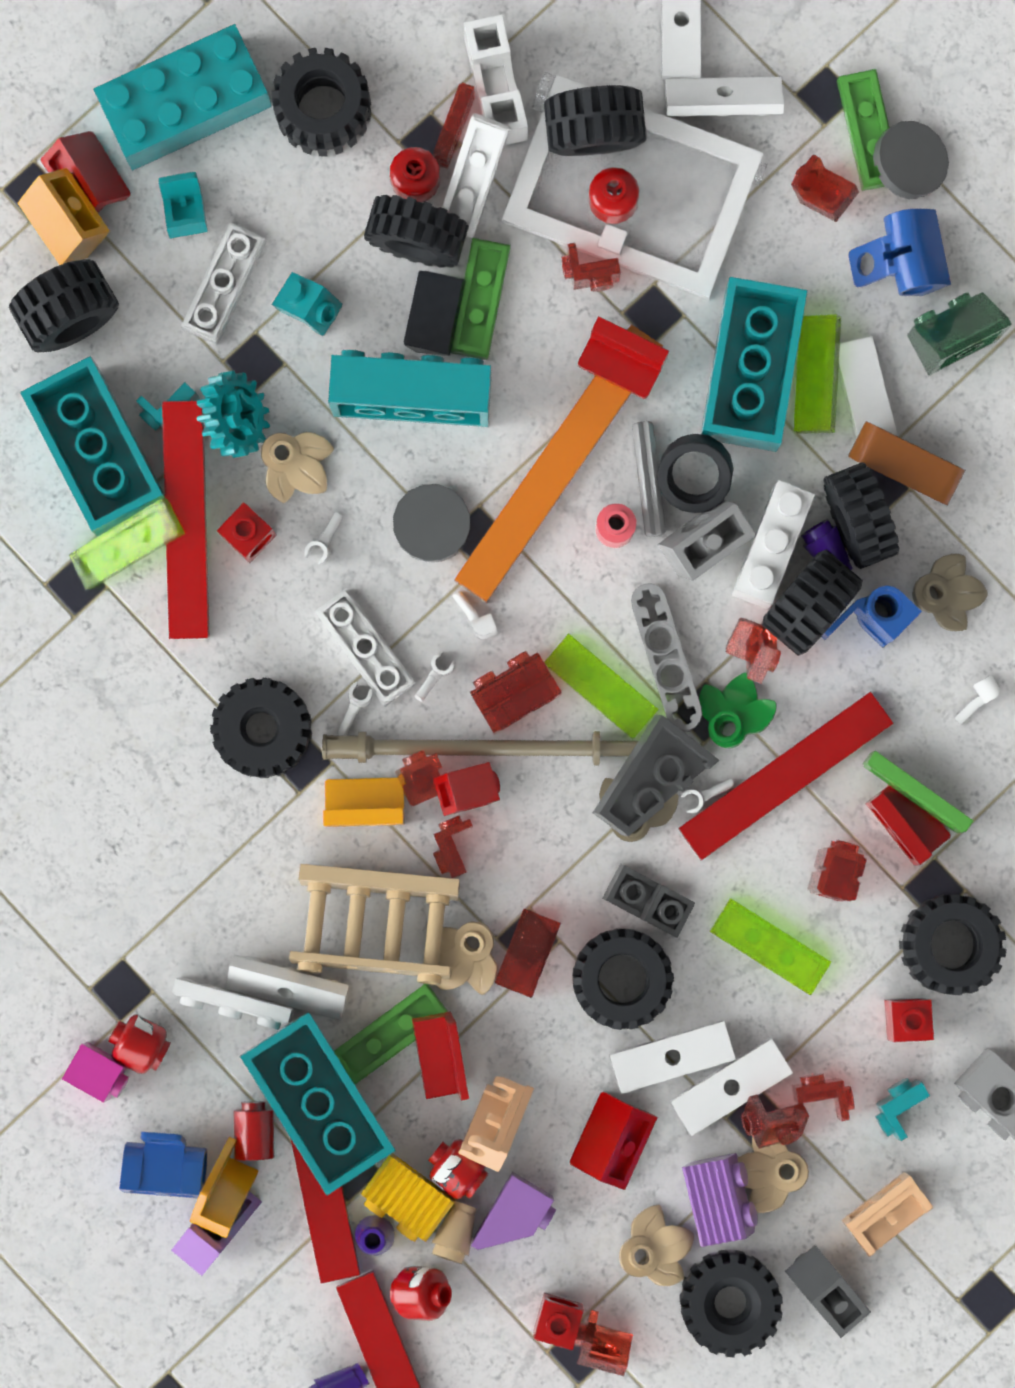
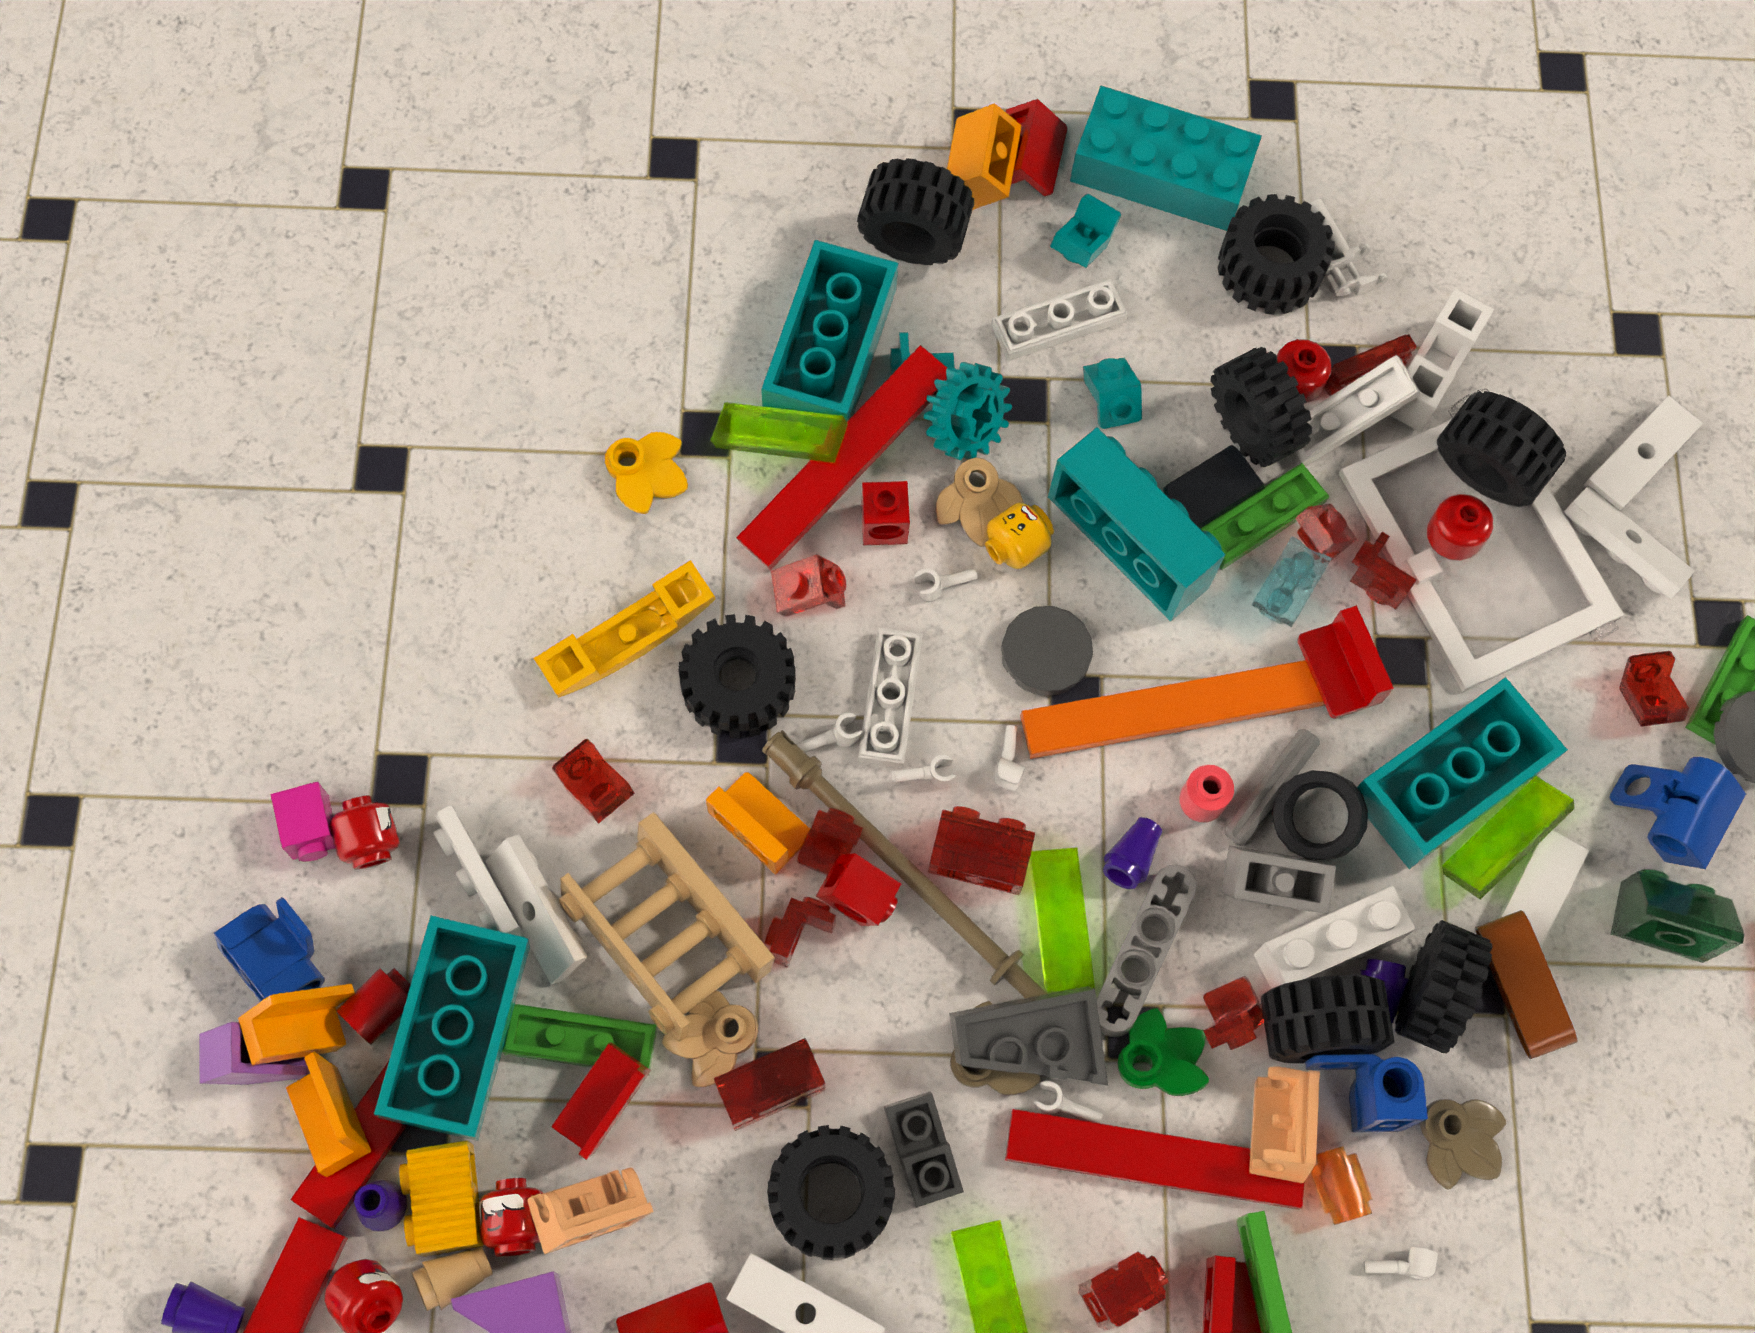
camera: 40 degrees right, 15 degrees down
(71, 649) = (652, 472): none -> yellow plate
(164, 767) = (628, 634): none -> yellow slope
(241, 879) = (592, 781): none -> clear red bracket
(245, 626) = (808, 585): none -> clear red bracket
(294, 1220) = (327, 1116): none -> light orange panel
(343, 465) = (1019, 535): none -> yellow head
(360, 53) = (1345, 257): none -> white piece
(531, 276) = (1324, 530): none -> clear red bracket
(541, 332) = (1290, 582): none -> clear light blue hips
(605, 605) = (1132, 855): none -> dark purple cone
(841, 685) = (1285, 1124): none -> light nougat hinge
(904, 688) = (1341, 1185): none -> clear orange brick

